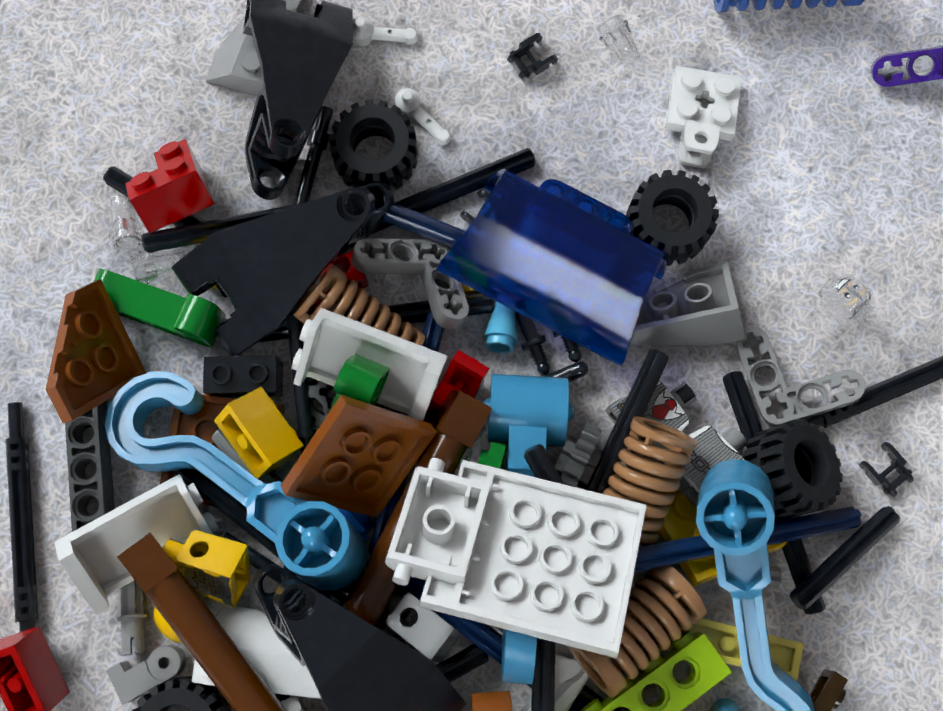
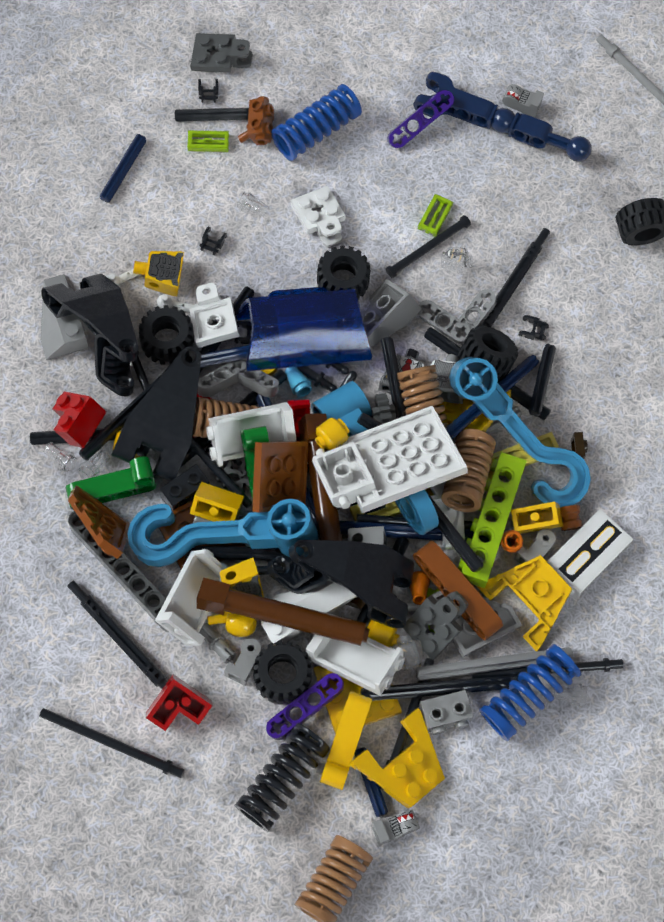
camera: 40 degrees left, 10 degrees down
(433, 56) = (161, 271): none -> torso
(460, 149) = (212, 308): none -> white plate
(473, 447) = (331, 434): none -> yellow head
(840, 227) = (428, 229): none -> lime tile
(897, 250) = (463, 222): none -> black bar

